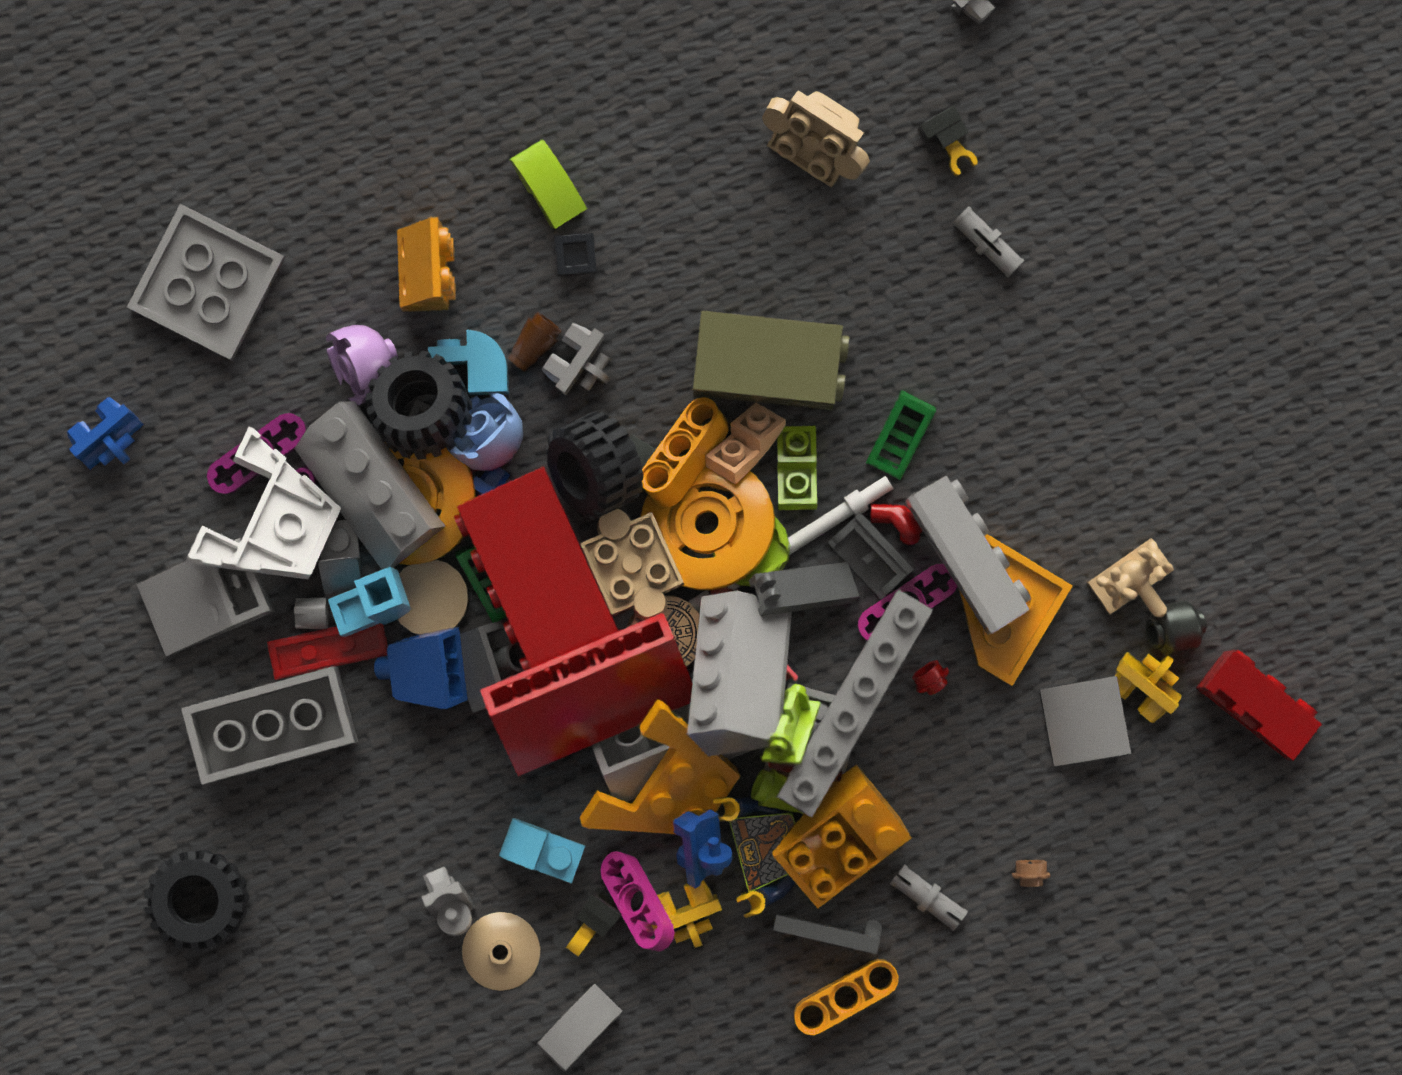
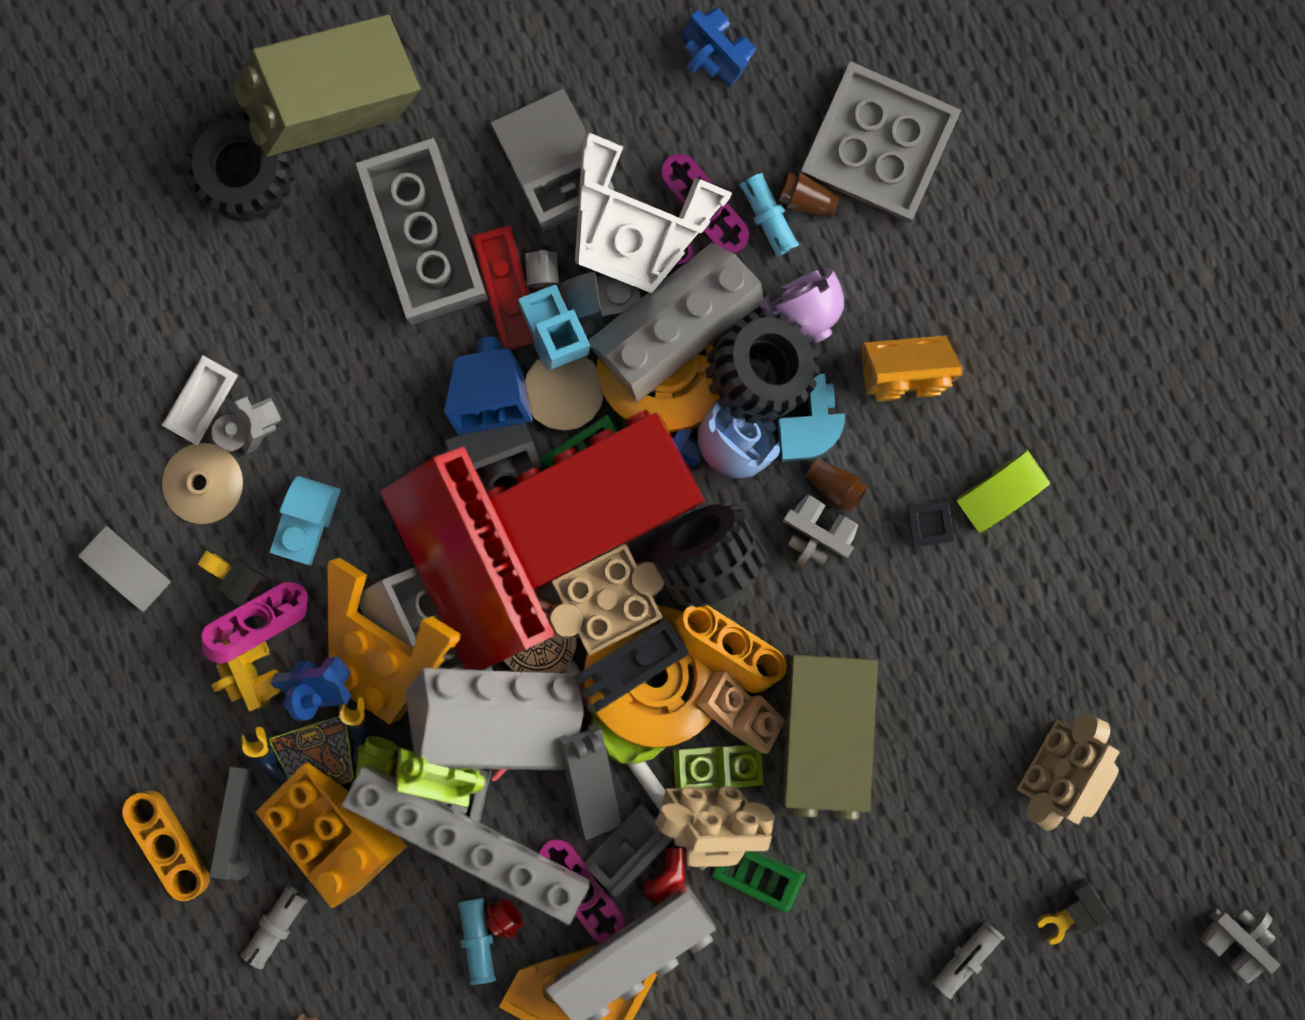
camera: 90 degrees right, 0 degrees up
(125, 808) = (325, 85): none -> olive brick
(254, 356) = (806, 196): none -> reddish brown cone
(270, 392) = (769, 214): none -> medium azure pin
(420, 949) = (200, 400): none -> white tile
(694, 541) = (633, 664): none -> black hinge
(846, 472) = (715, 824): none -> tan piece
(950, 704) = (476, 941): none -> medium azure pin

